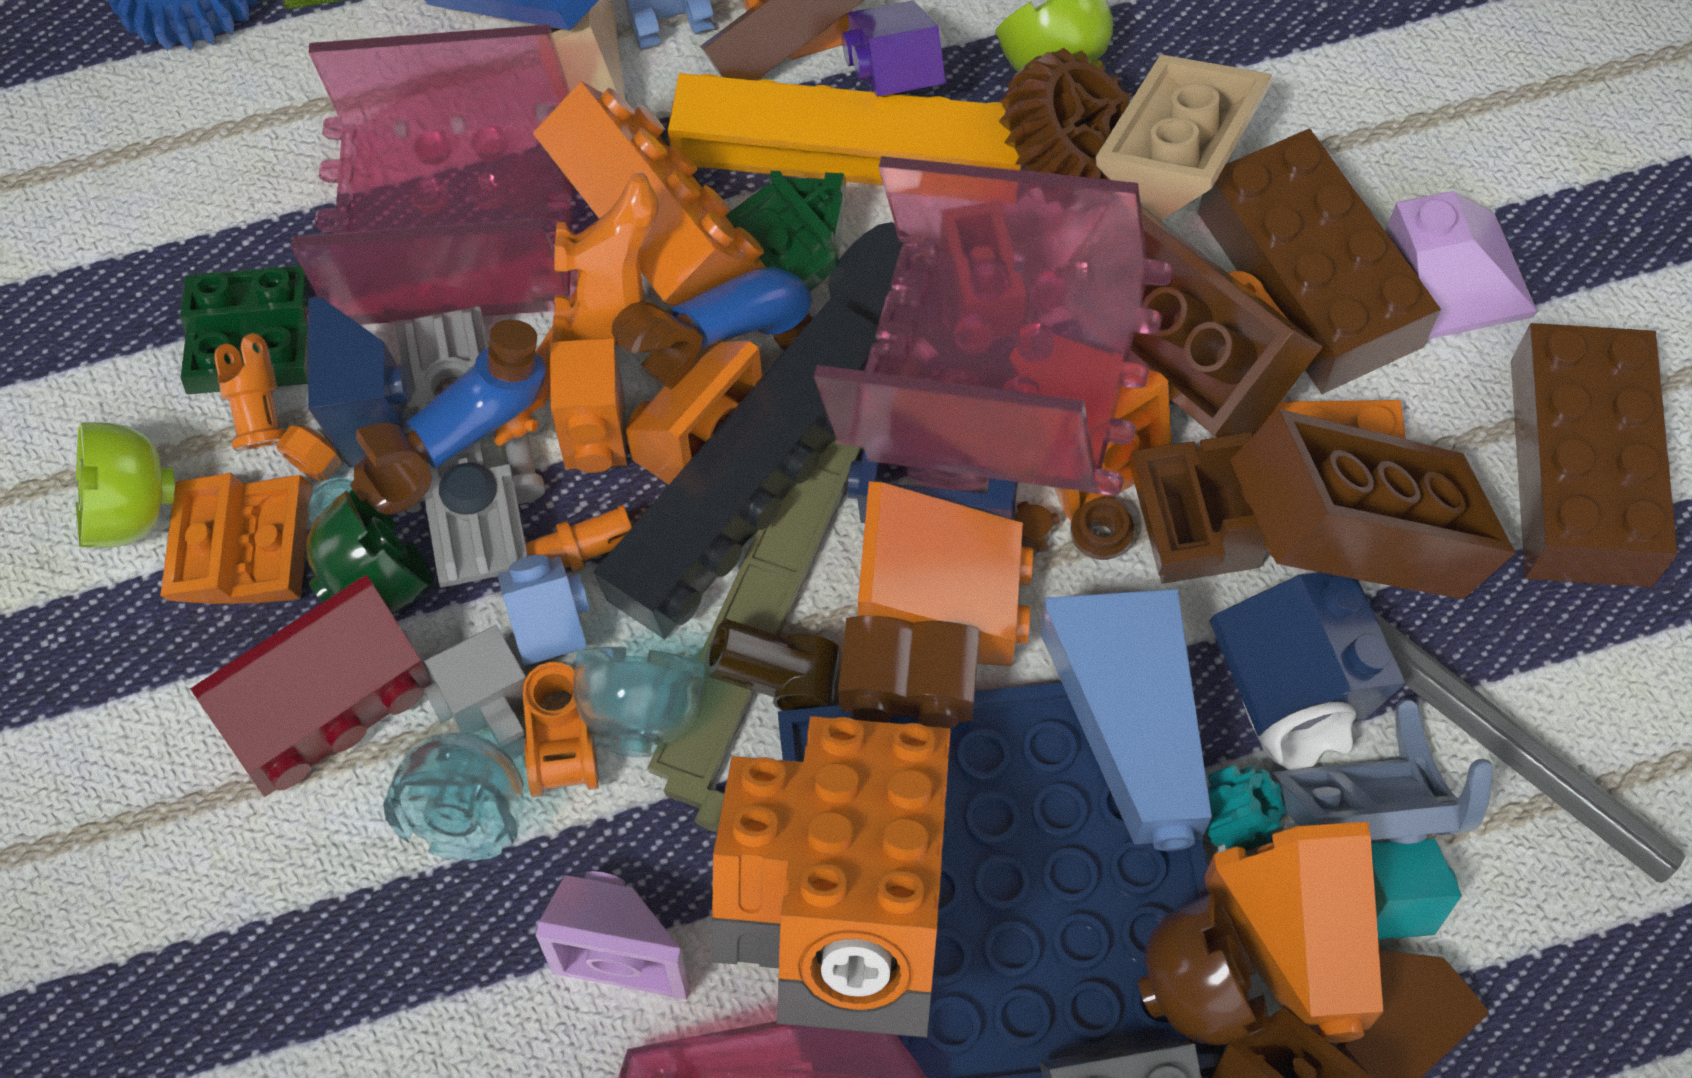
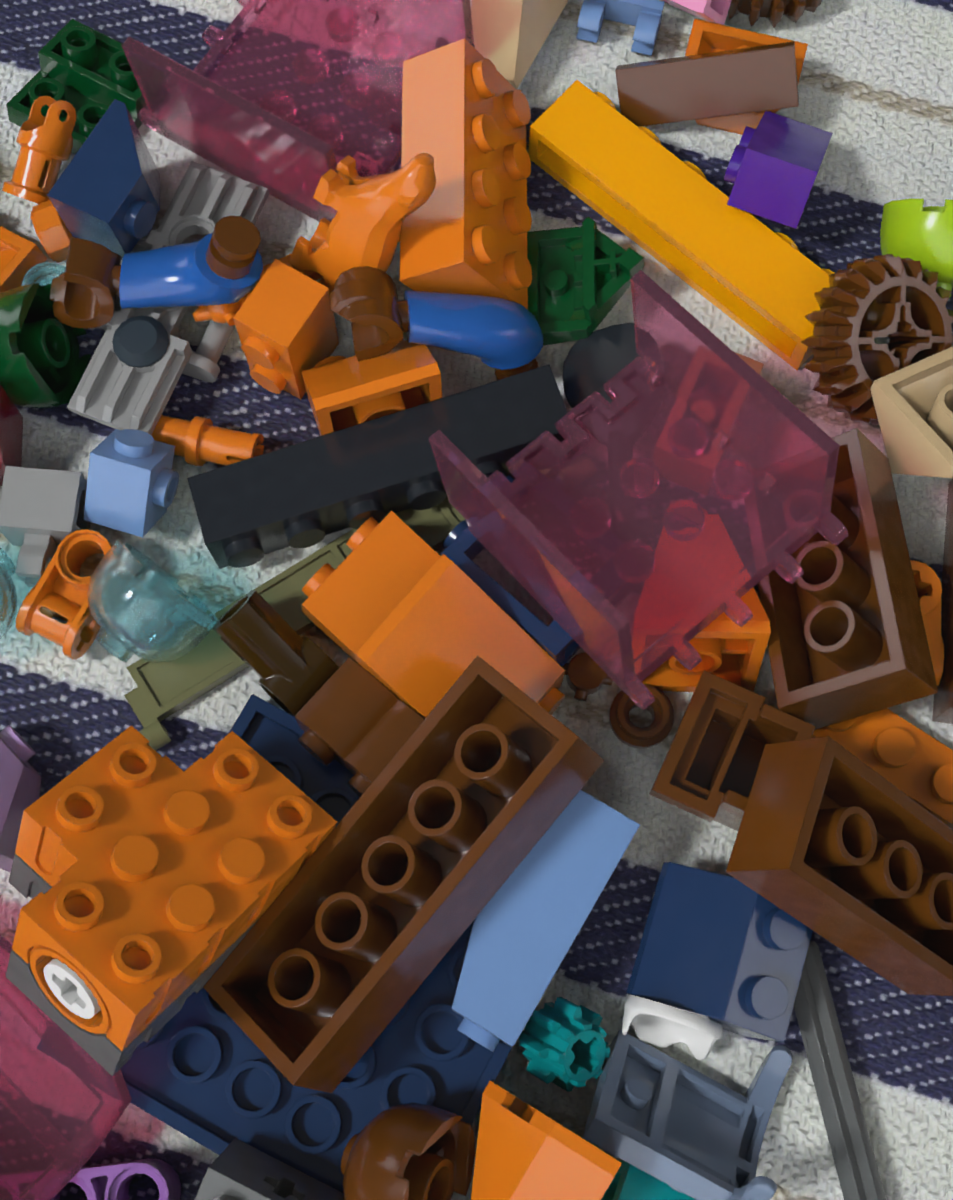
camera: 35 degrees right, 10 degrees up
(816, 561) = (369, 583): none -> orange brick
(1029, 741) = (401, 877): none -> reddish brown brick

